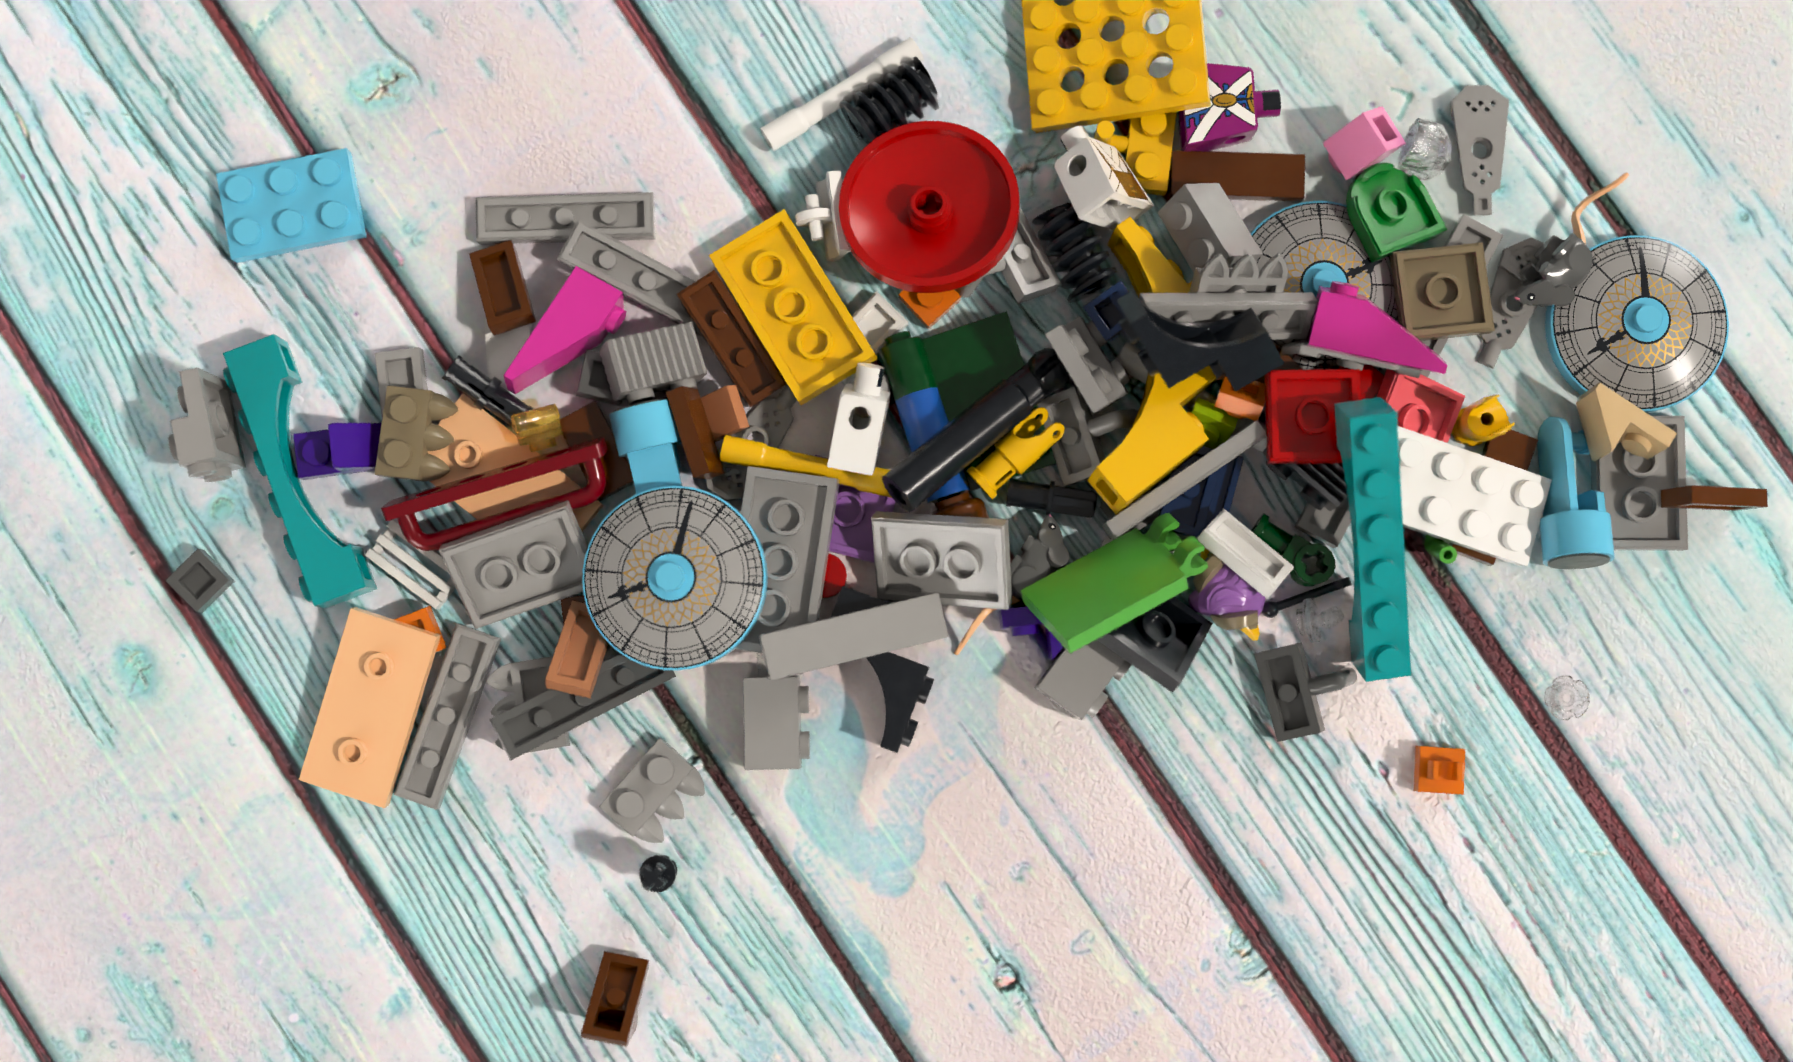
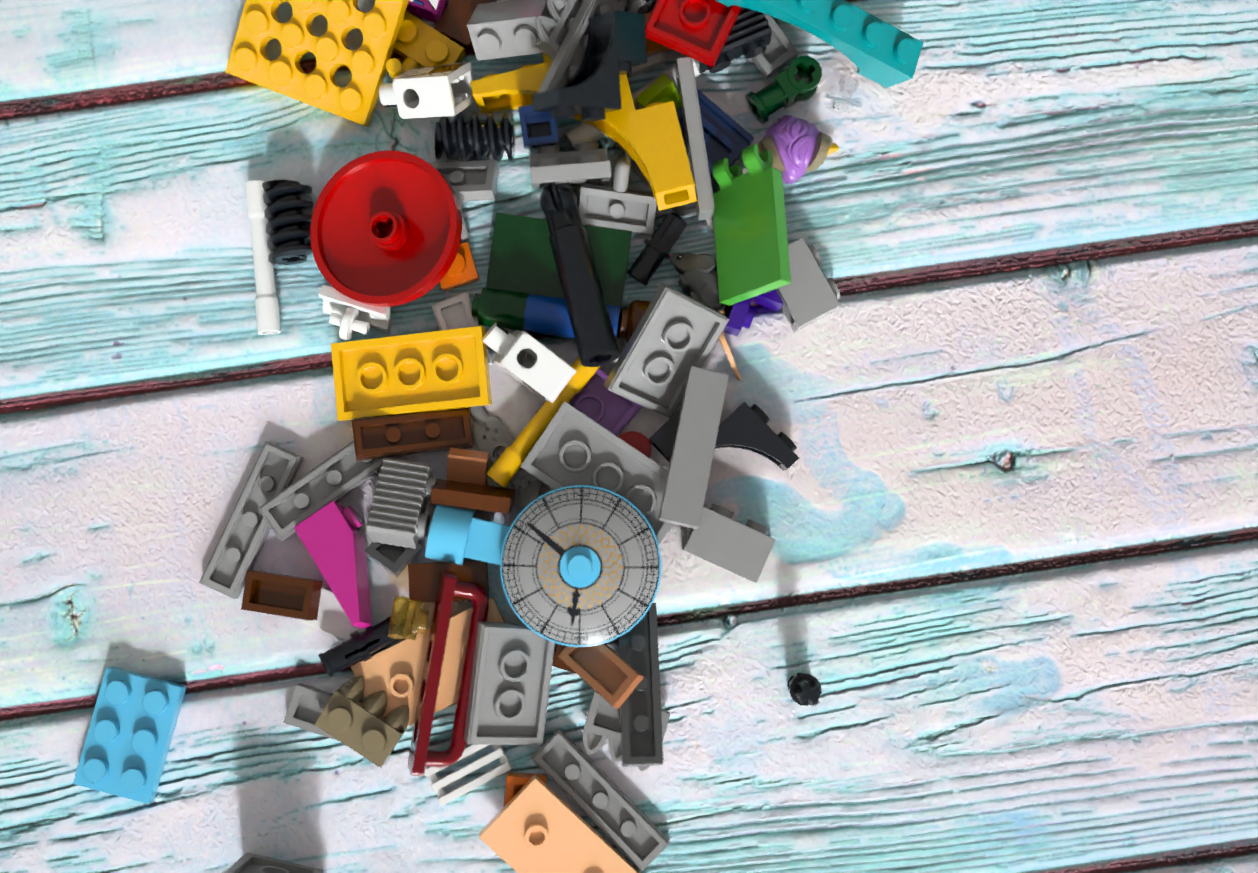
camera: 65 degrees left, 0 degrees up
(264, 380) = (260, 822): teal arch -> none
(337, 450) = (346, 789): dark purple slope -> none
(615, 999) = (887, 769): reddish brown slope -> none
(652, 789) = (735, 664): light grey plate -> none
(1016, 452) = (610, 257): yellow piece -> none
(1161, 641) = (812, 214): black plate -> none
(1244, 403) = (657, 66): orange plate -> none
(1245, 553) = (773, 119): white tile -> none
(1272, 608) = (820, 124): black hinge -> none
(1293, 692) = (891, 138): dark grey plate -> none
(1439, 770) = (999, 61): orange tile -> none

